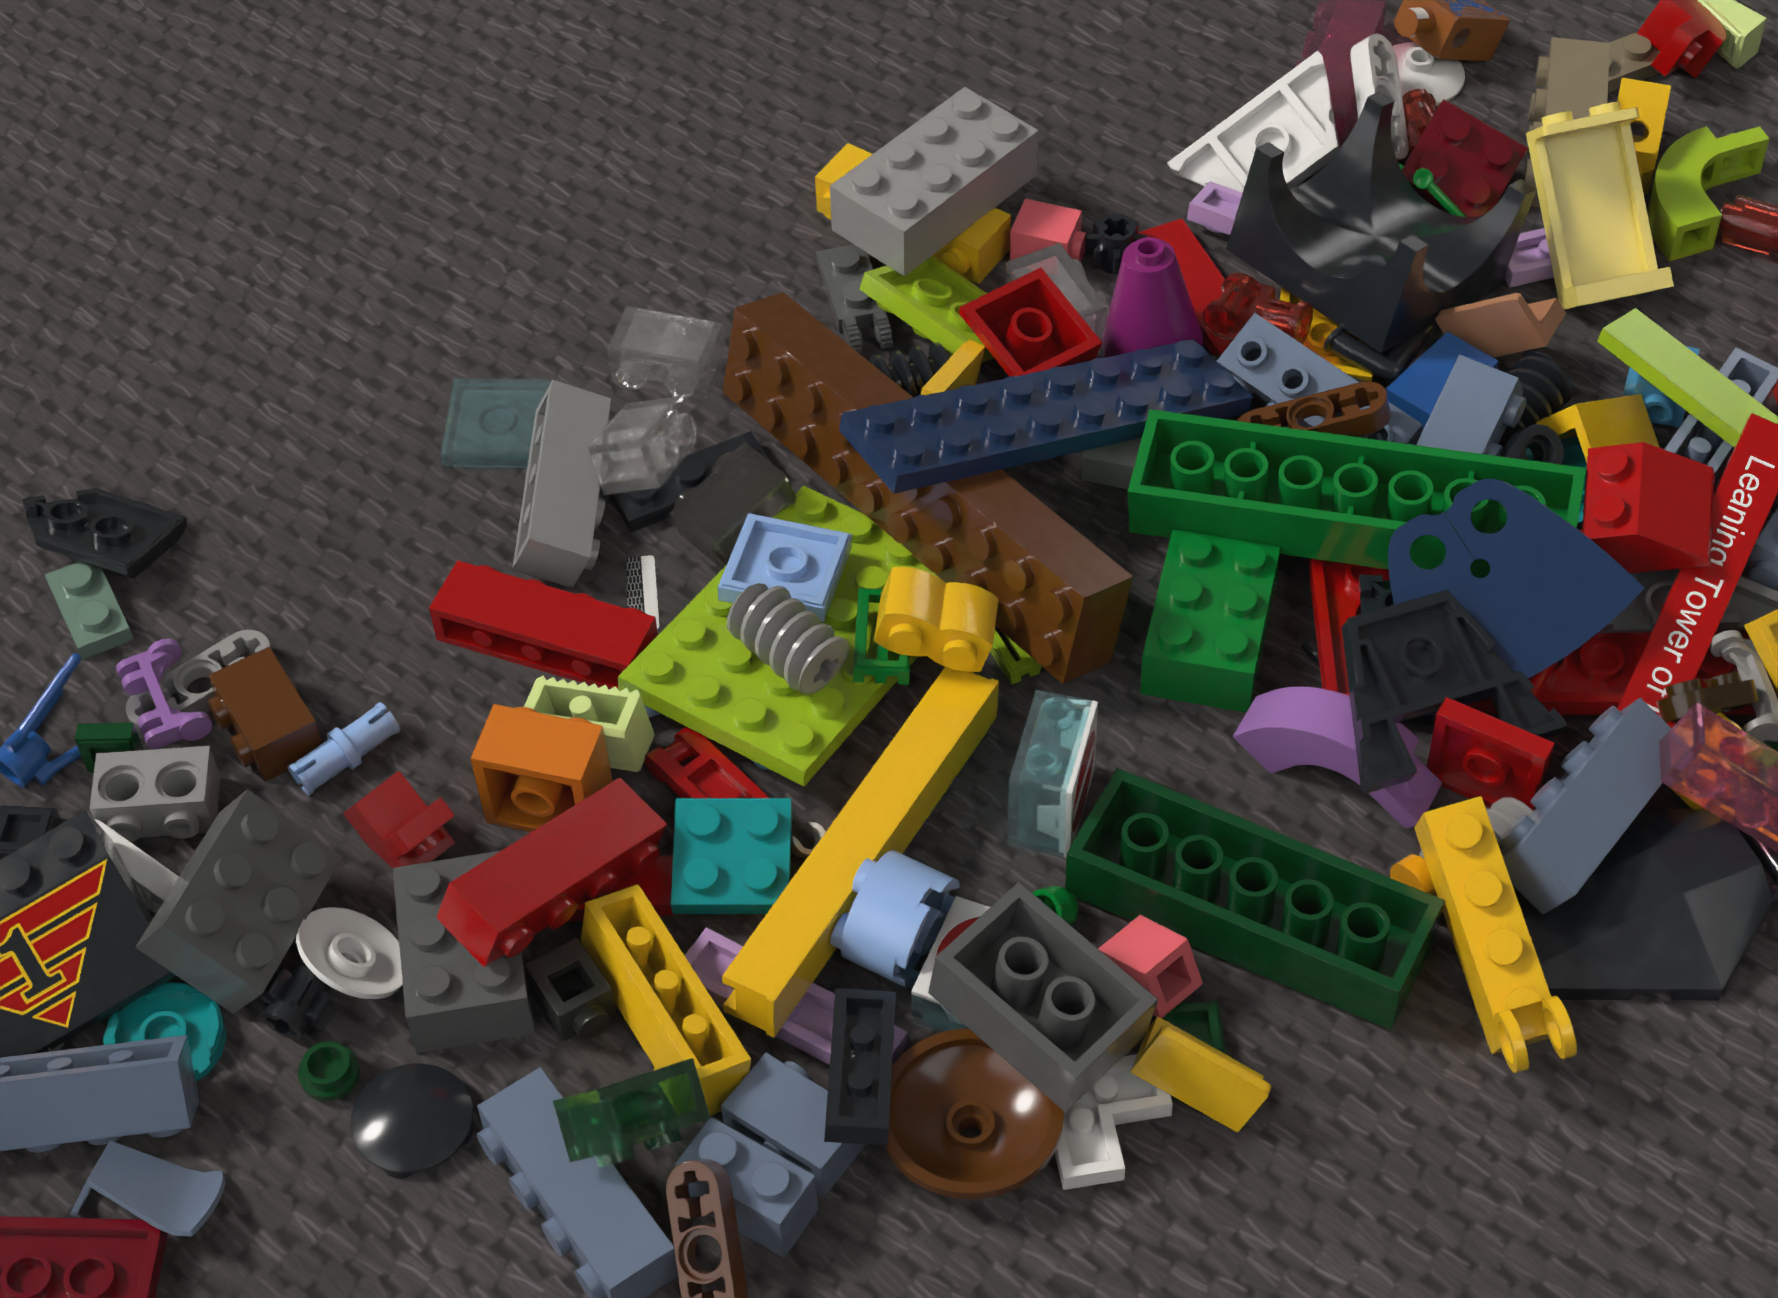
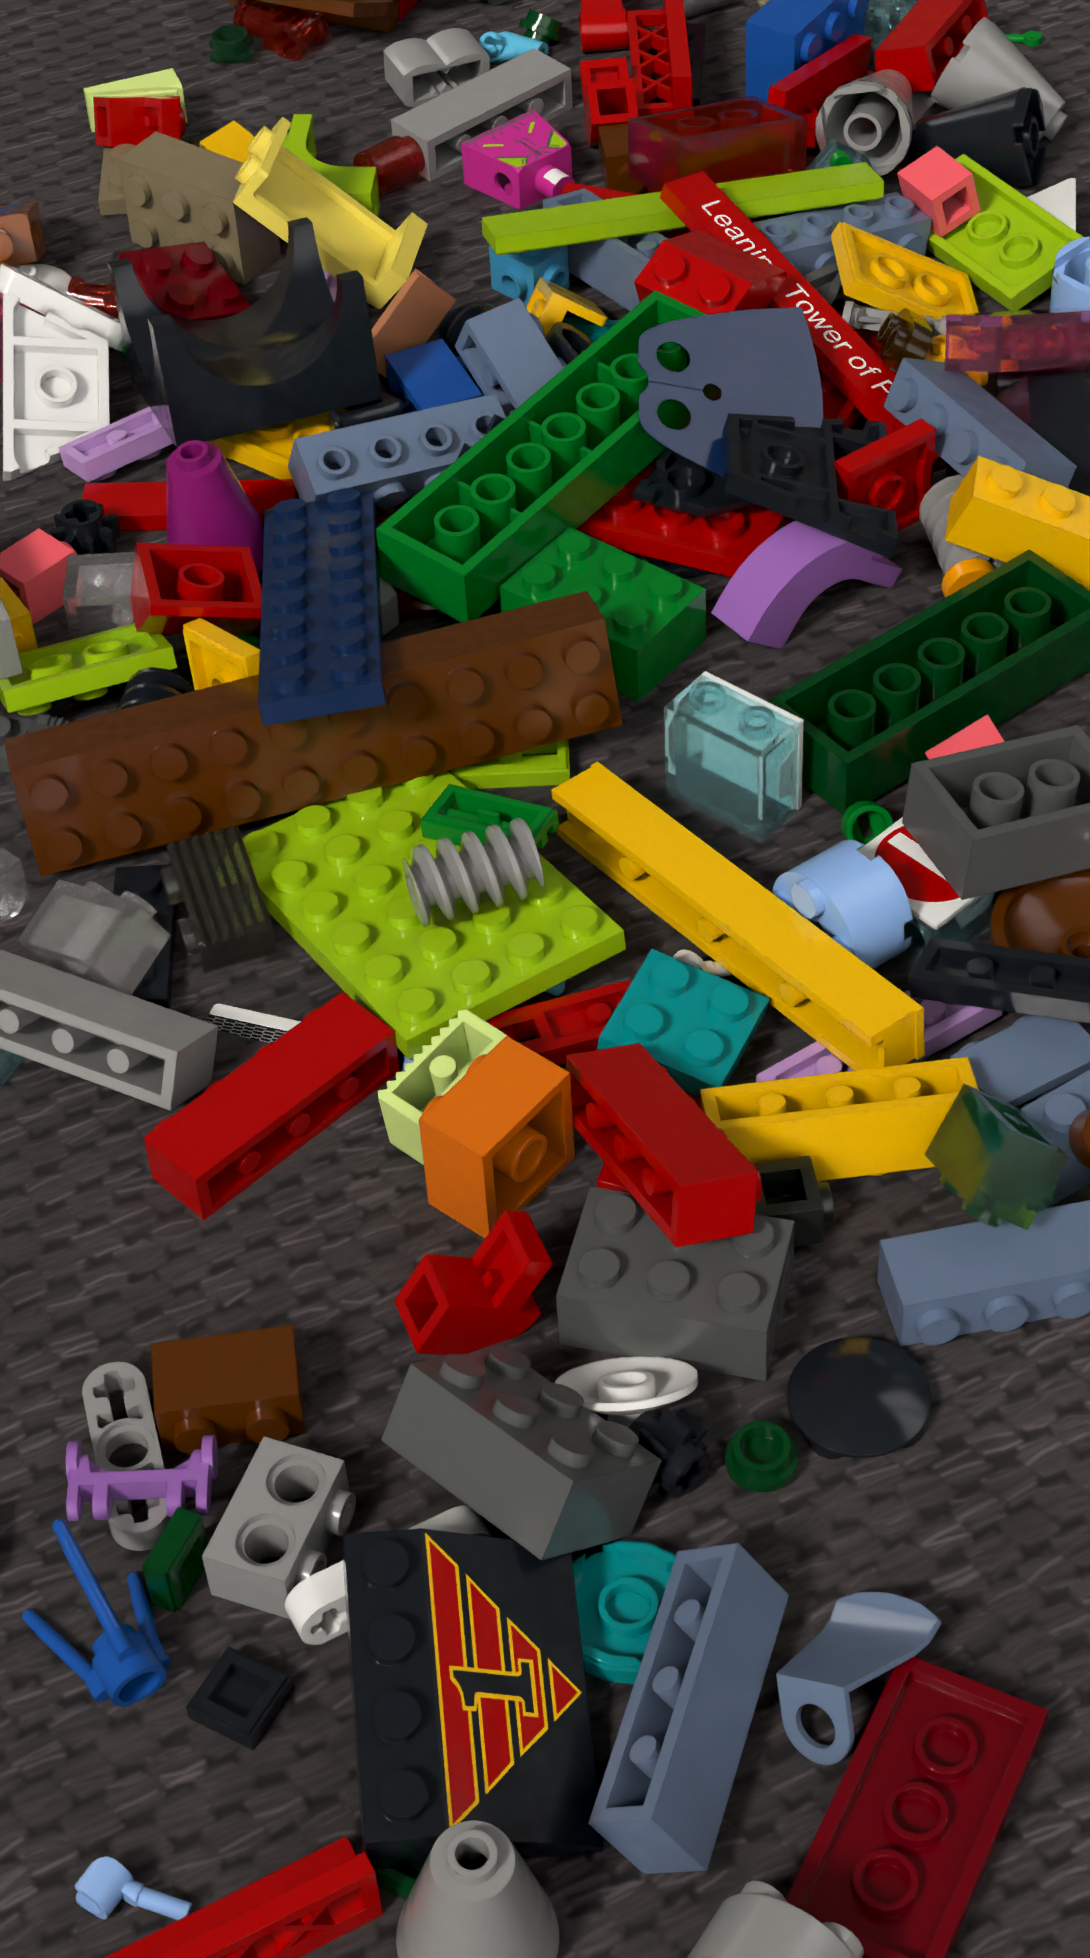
camera: 65 degrees left, 5 degrees down
(344, 748) = (321, 1332): light blue pin -> none
(787, 555) = (342, 872): light blue tile -> none
(936, 619) = (516, 762): yellow brick -> none
(1259, 299) = (265, 459): clear red connector -> none
(1328, 403) = (448, 428): reddish brown beam -> none
(1424, 179) = (193, 306): green hinge -> none

